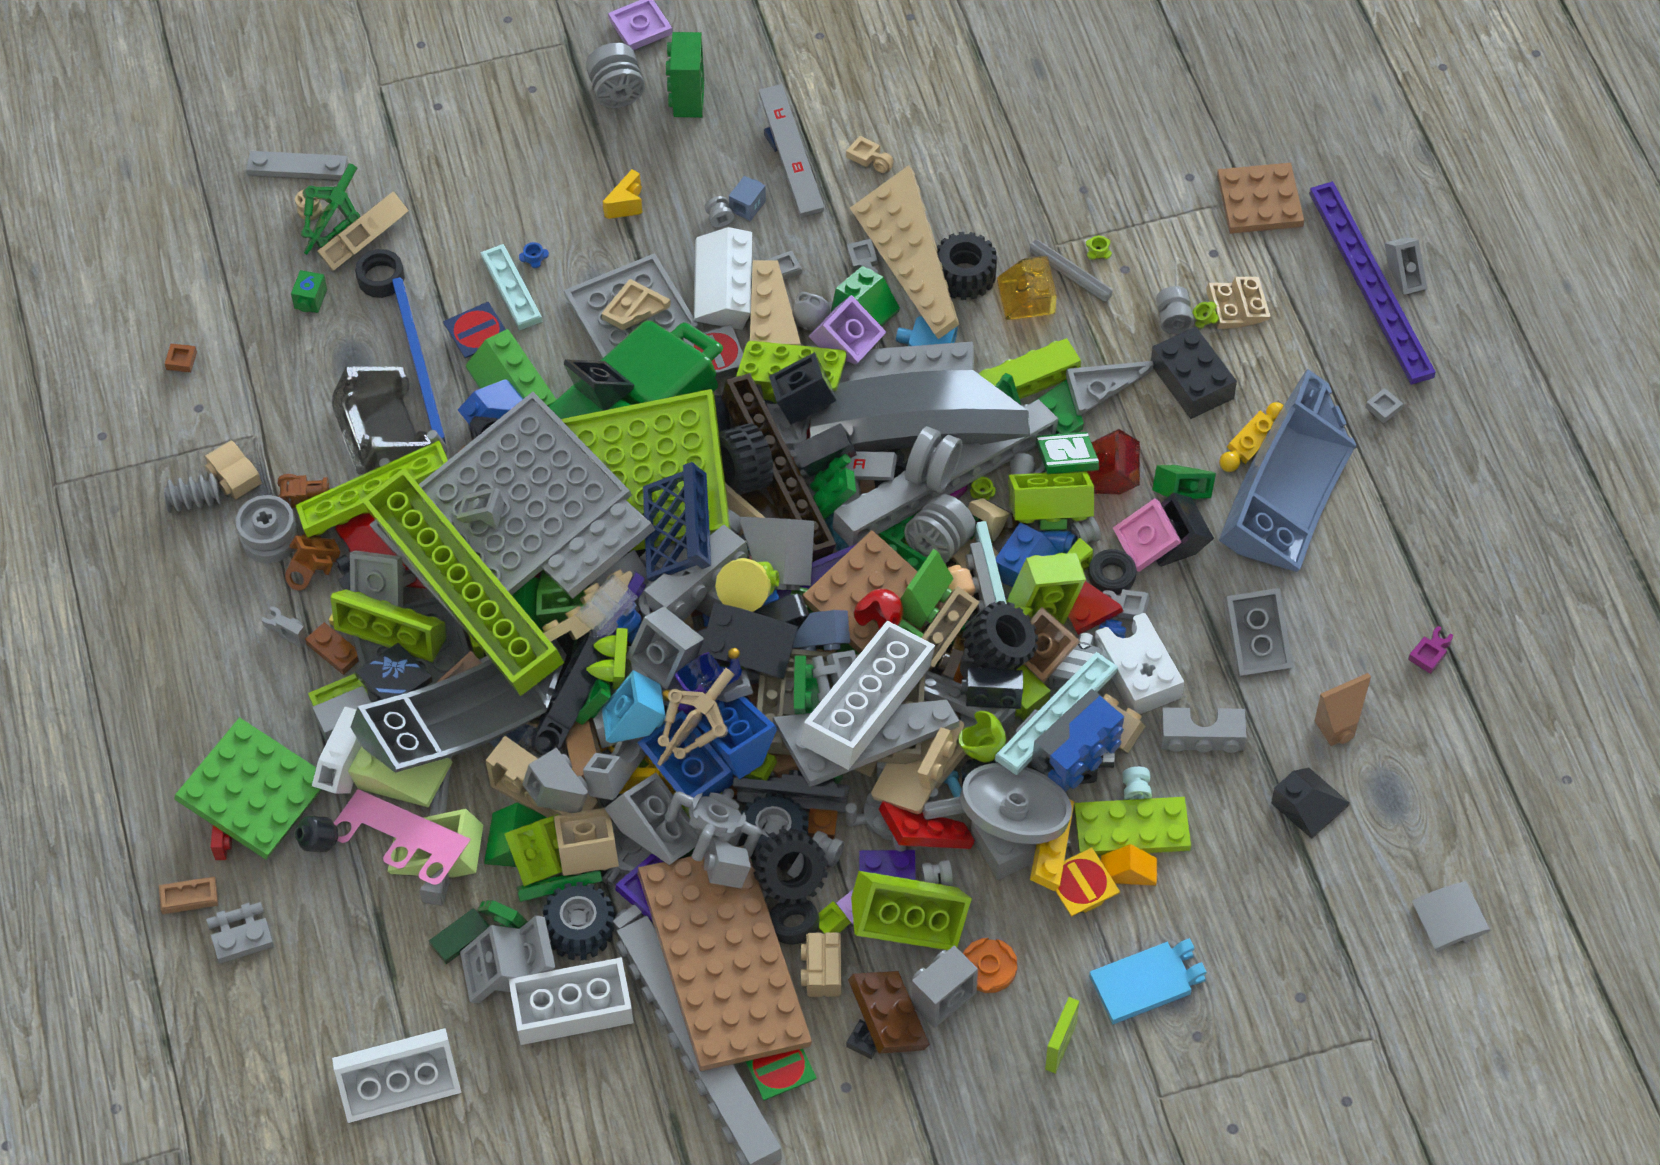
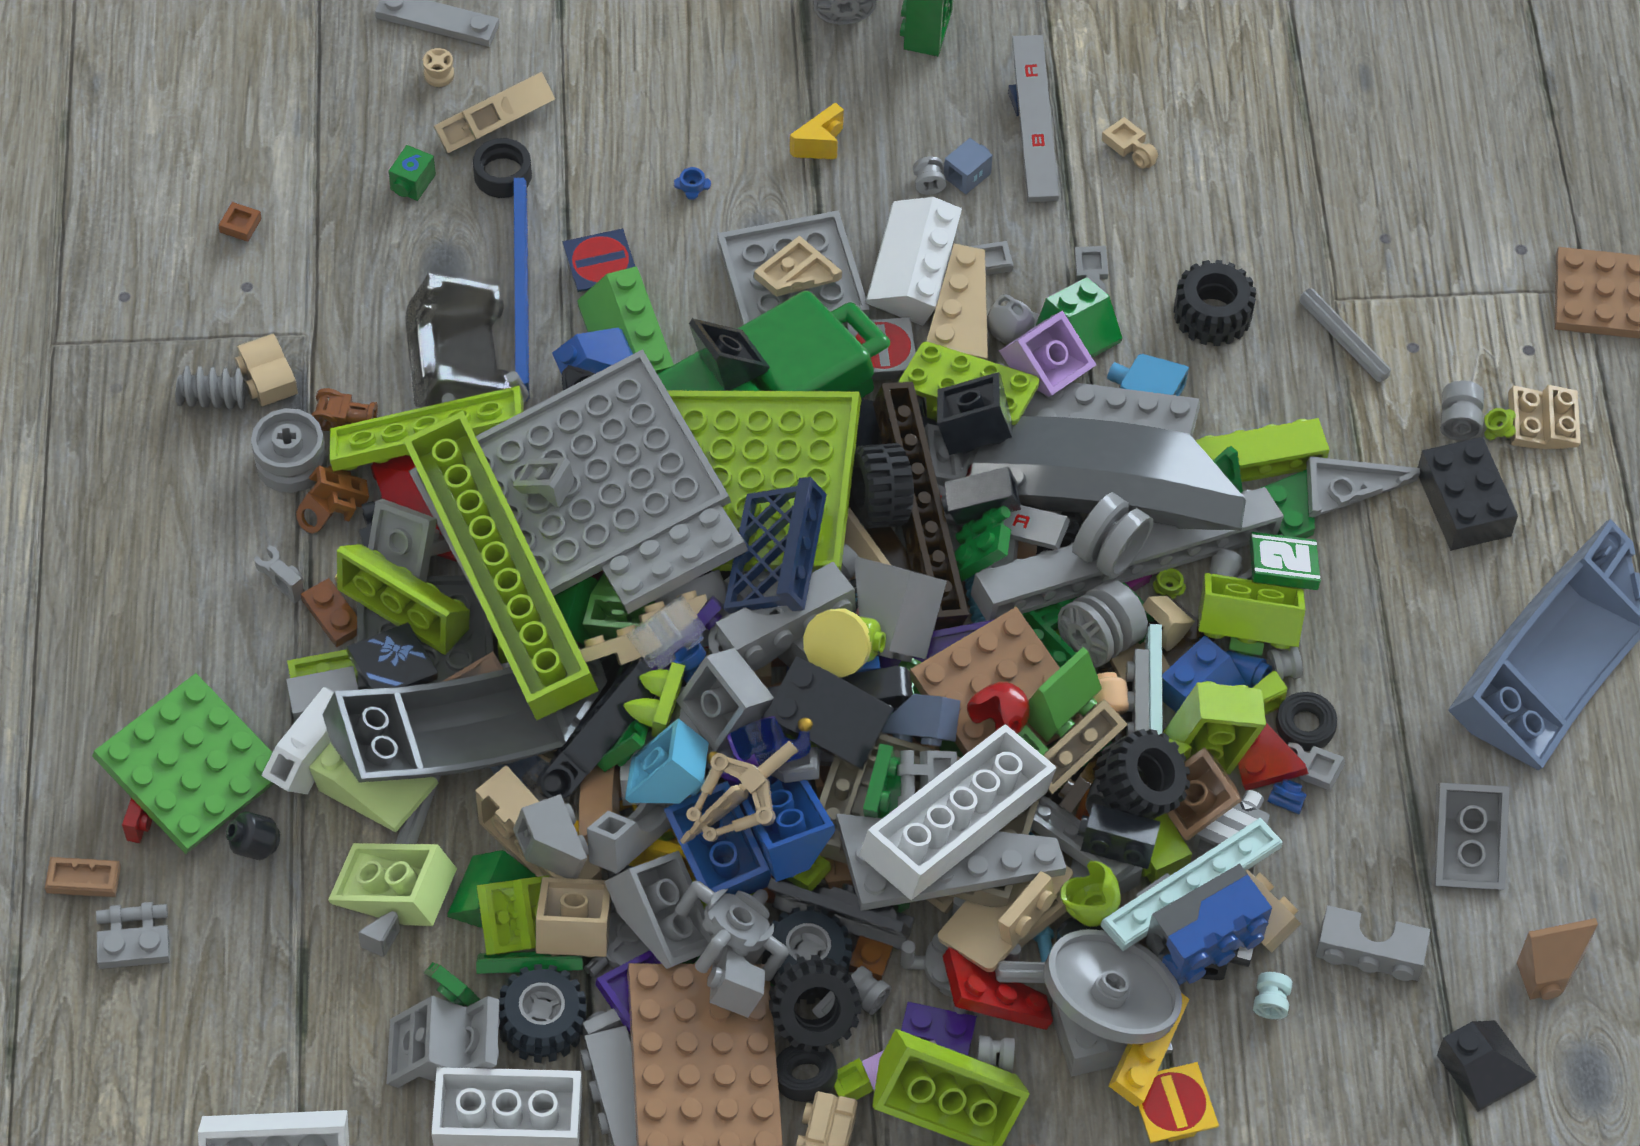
camera: 10 degrees right, 0 degrees up
(336, 198) = (471, 66): green bar -> none
(408, 829) = (365, 857): bright pink piece -> none
(458, 935) = (392, 998): dark green tile -> none
(511, 287) = (656, 216): light aqua tile -> none
(900, 231) = (1147, 256): tan wing -> none
(1027, 289) = (1285, 347): clear yellow slope -> none
(1097, 243) = (1389, 308): lime plate -> none
(1118, 463) = (1344, 587): clear red slope -> none
(1131, 866) = (1240, 1096): light orange slope -> none
(1145, 669) = (1316, 848): white brick -> none
(1147, 534) = (1360, 683): bright pink tile -> none
(1148, 824) = (1255, 1046): lime plate -> none
(1183, 481) = (1421, 628): green slope -> none
(1188, 526) = (1397, 685): black slope -> none
(1250, 438) = (1518, 591): yellow plate -> none

